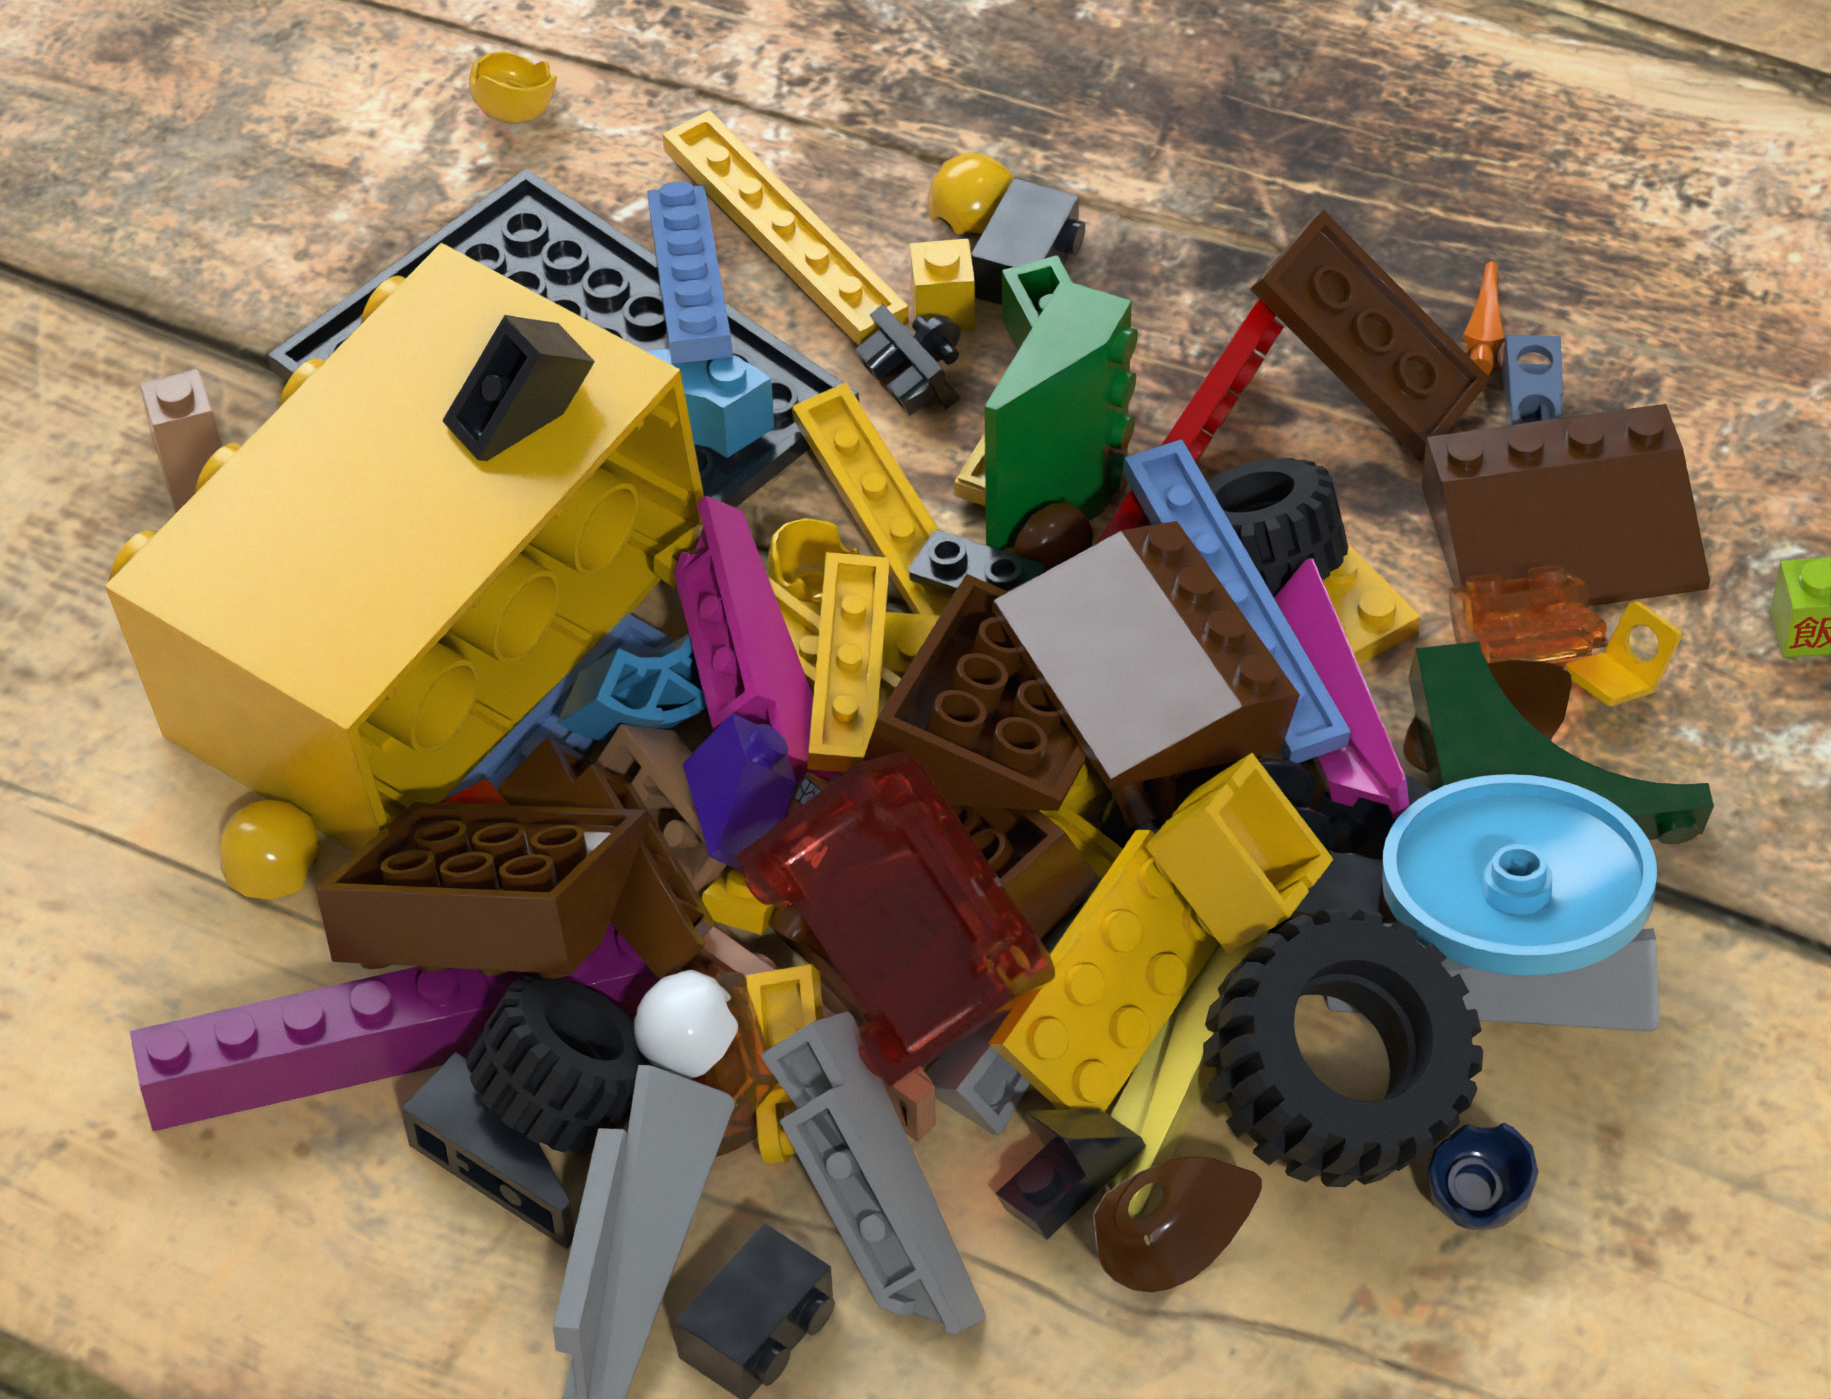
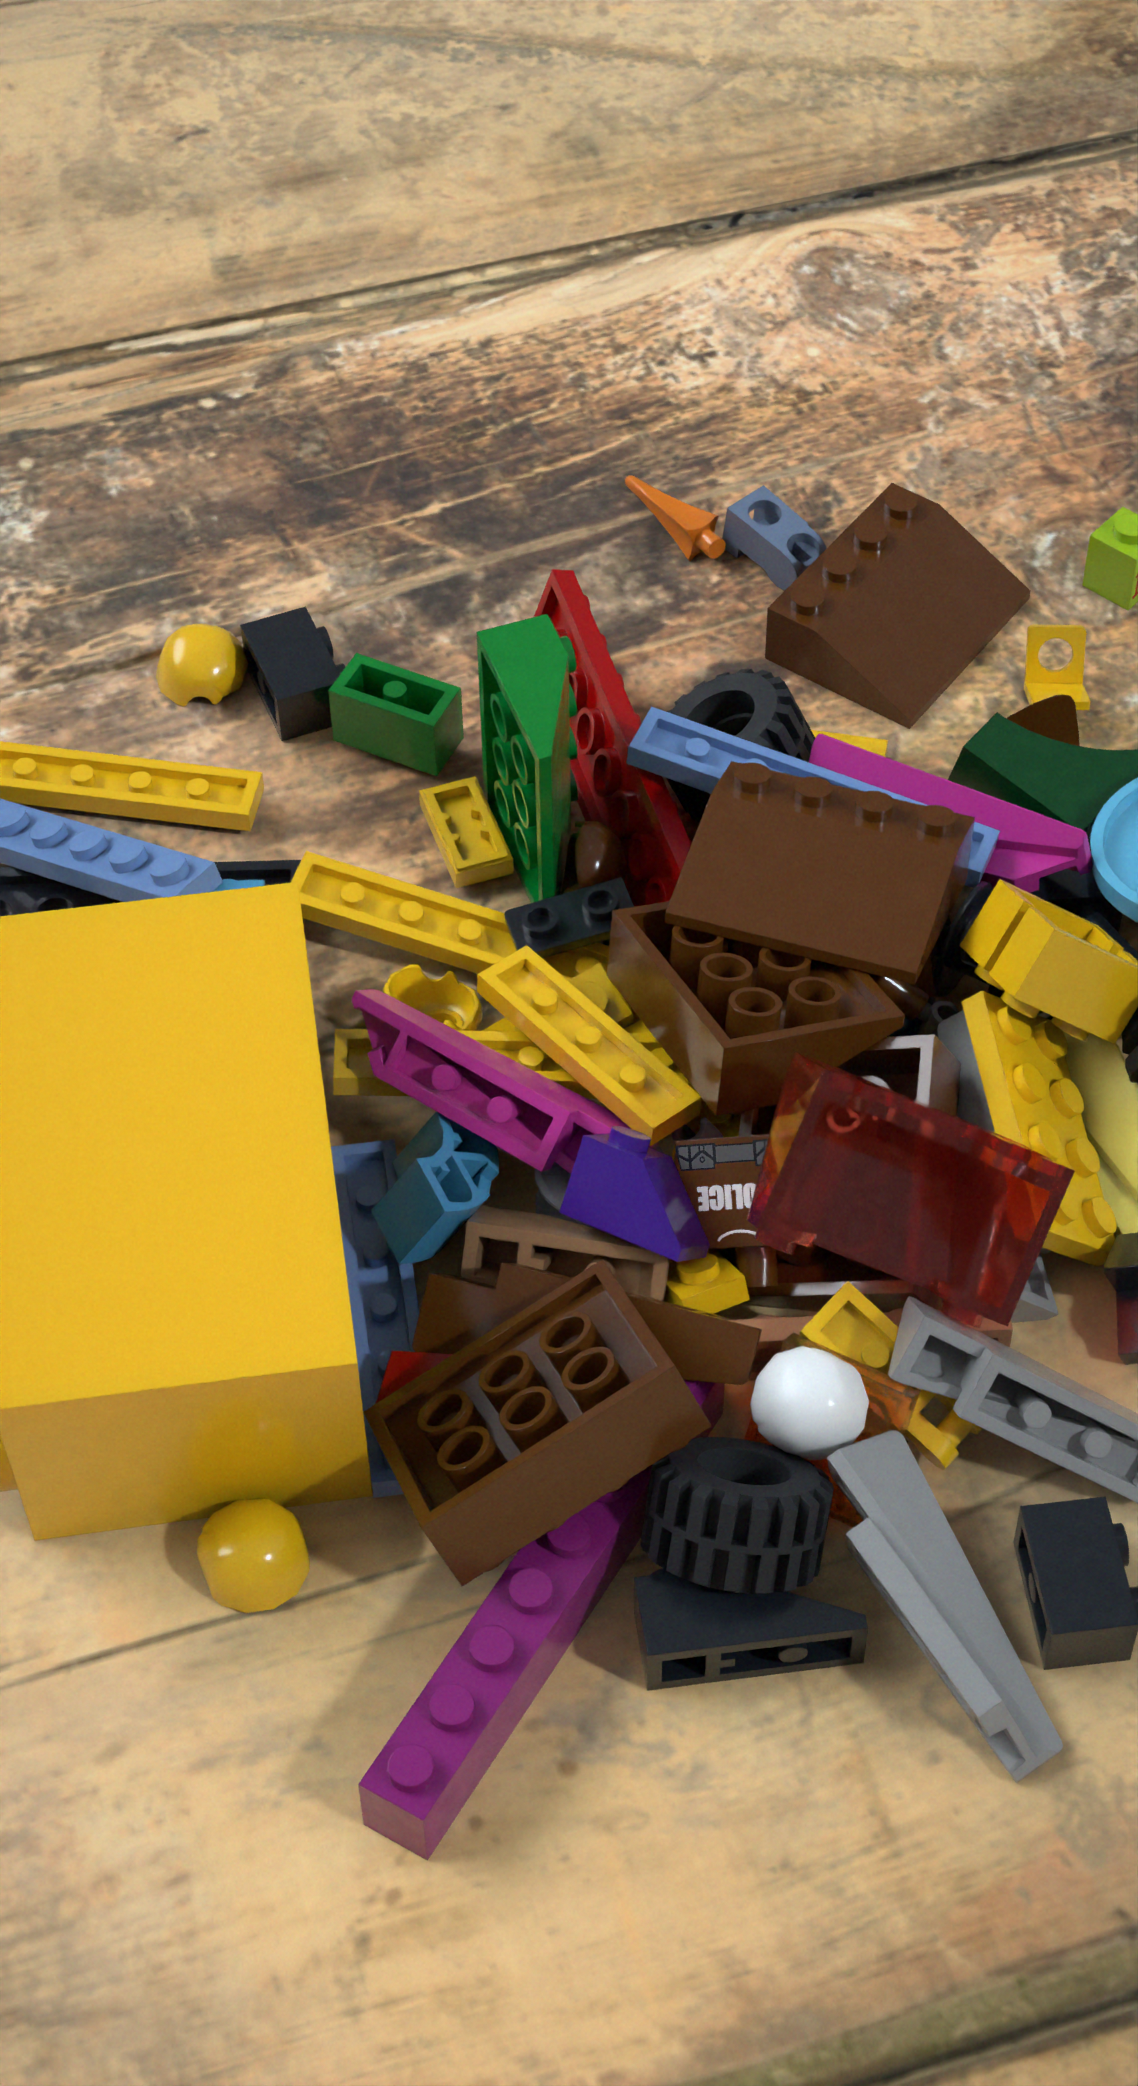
camera: 45 degrees left, 0 degrees up
(517, 385) = (195, 983): black slope -> none
(923, 377) = (310, 800): black hips -> none
(943, 281) = (271, 739): yellow brick -> none
(1370, 333) = (643, 564): reddish brown plate -> none
(1527, 617) = (964, 690): clear orange brick -> none

